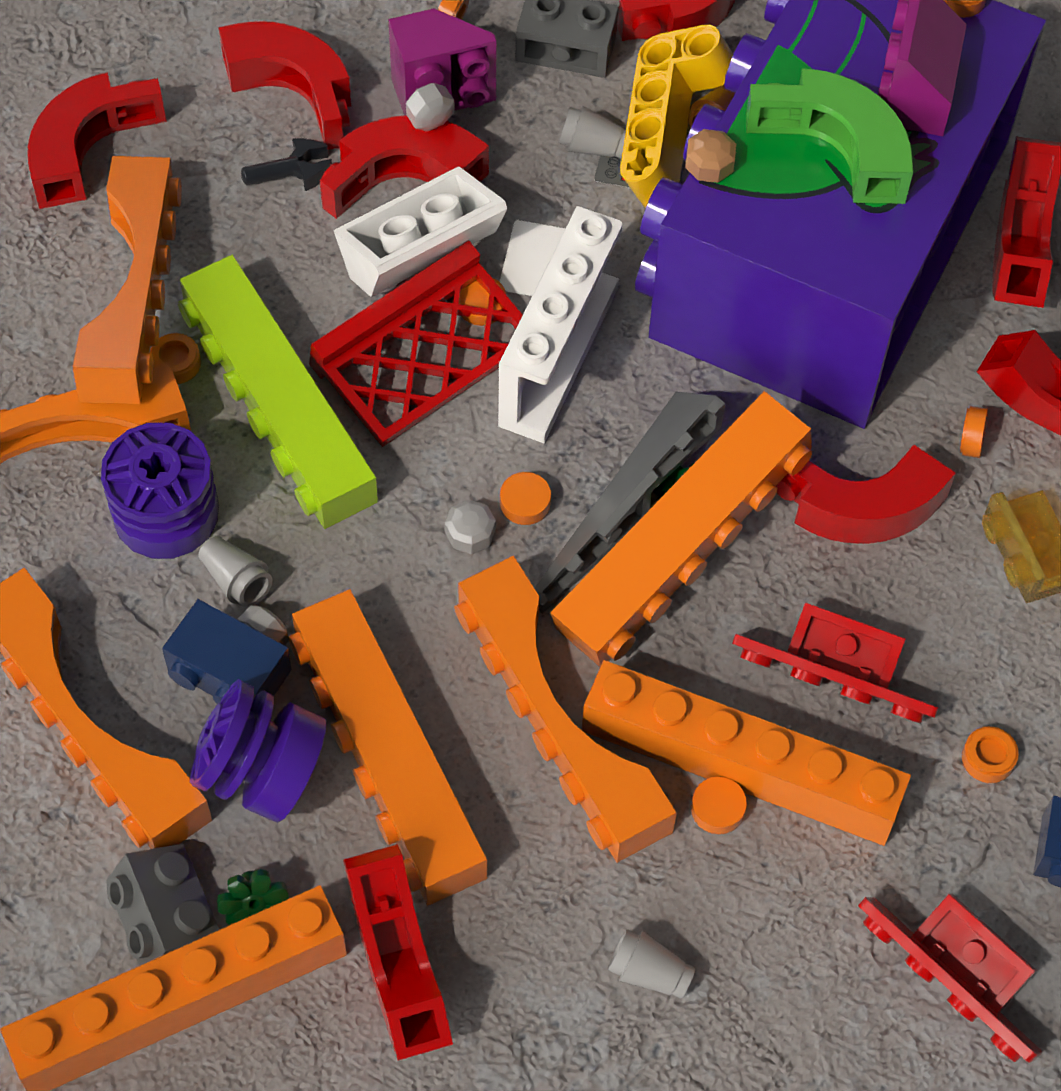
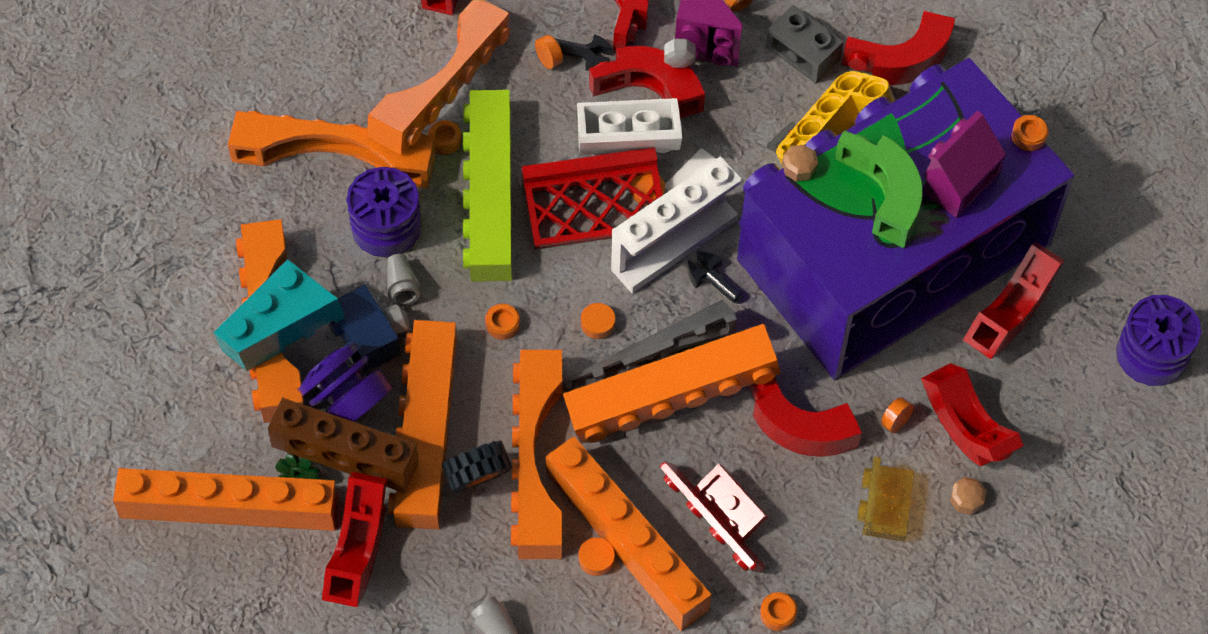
camera: 30 degrees right, 0 degrees up
(106, 698) = (276, 315): none -> teal wedge
(159, 901) = (246, 446): dark grey bracket -> none
(248, 186) = (549, 51): none -> orange tile
(305, 828) = (342, 444): none -> reddish brown brick
(401, 560) = (502, 321): none -> orange tile
(470, 526) = (554, 321): light grey tile -> none
(499, 766) = (477, 466): none -> black wheel
(592, 134) = (777, 114): light grey cone -> none
(632, 371) = (712, 276): none -> black bar

